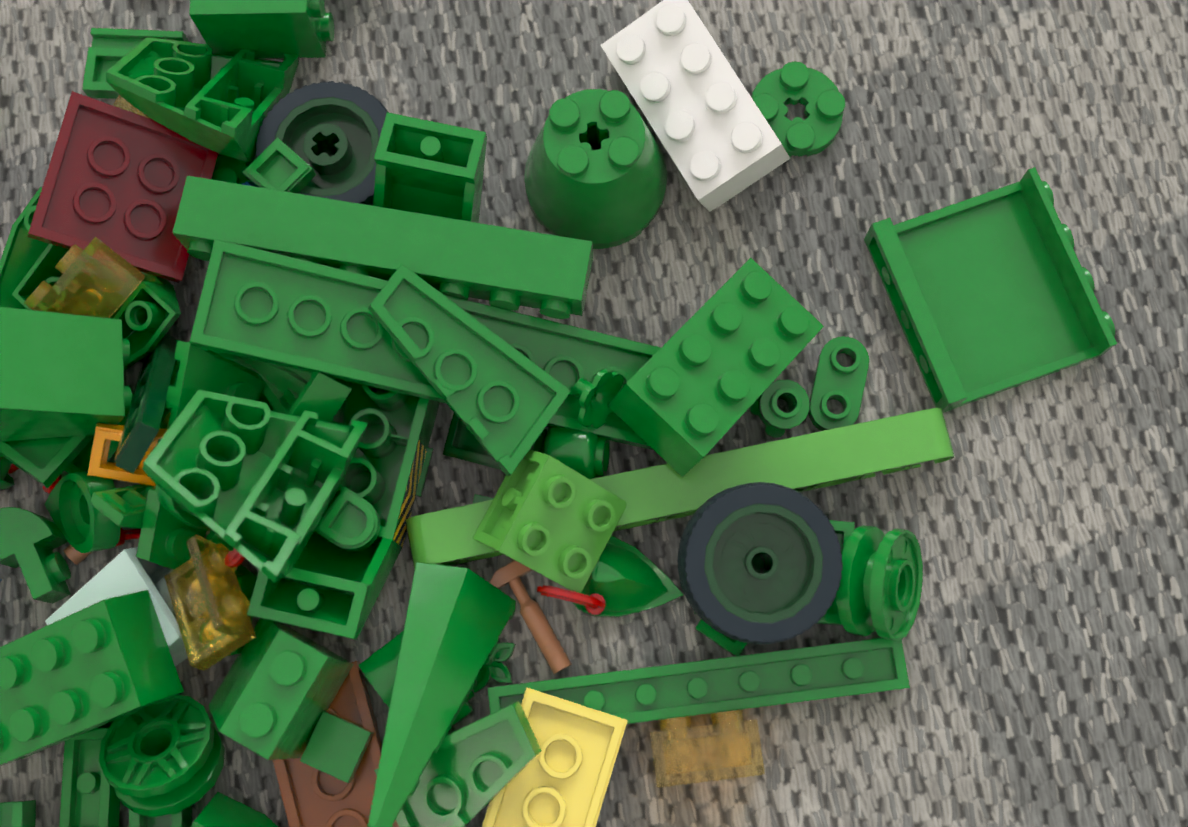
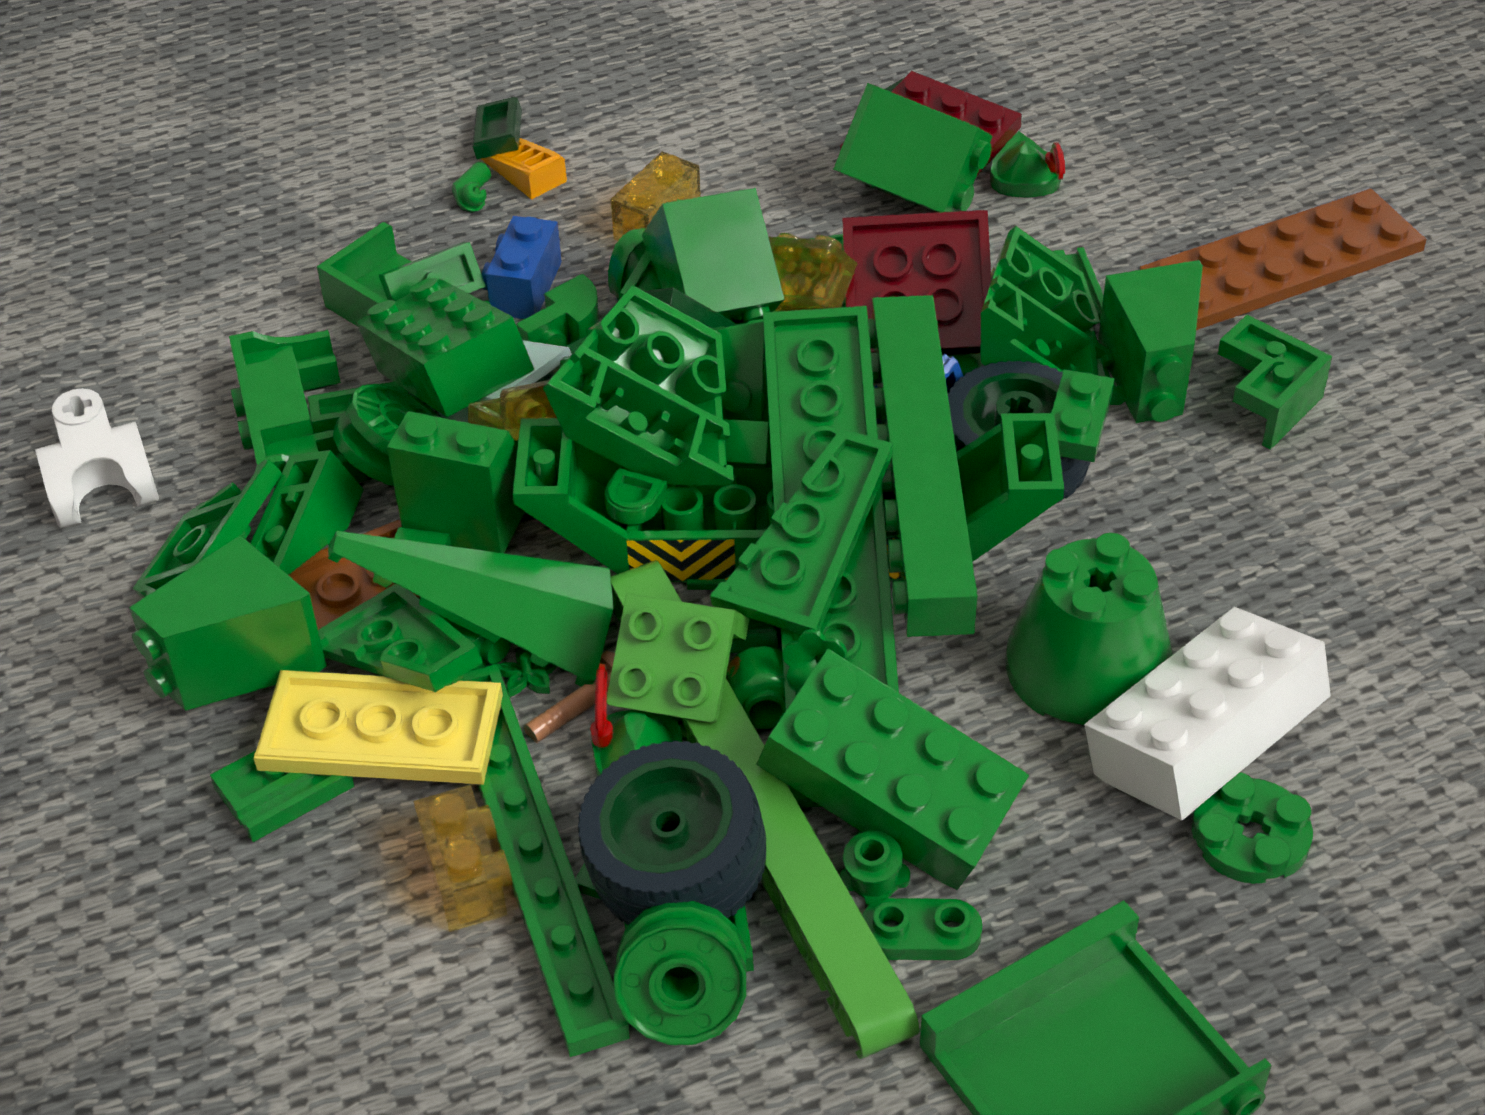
camera: 75 degrees right, 30 degrees down
(279, 169) = (975, 379): green tile -> none
(353, 94) = (1081, 413): none -> green plate

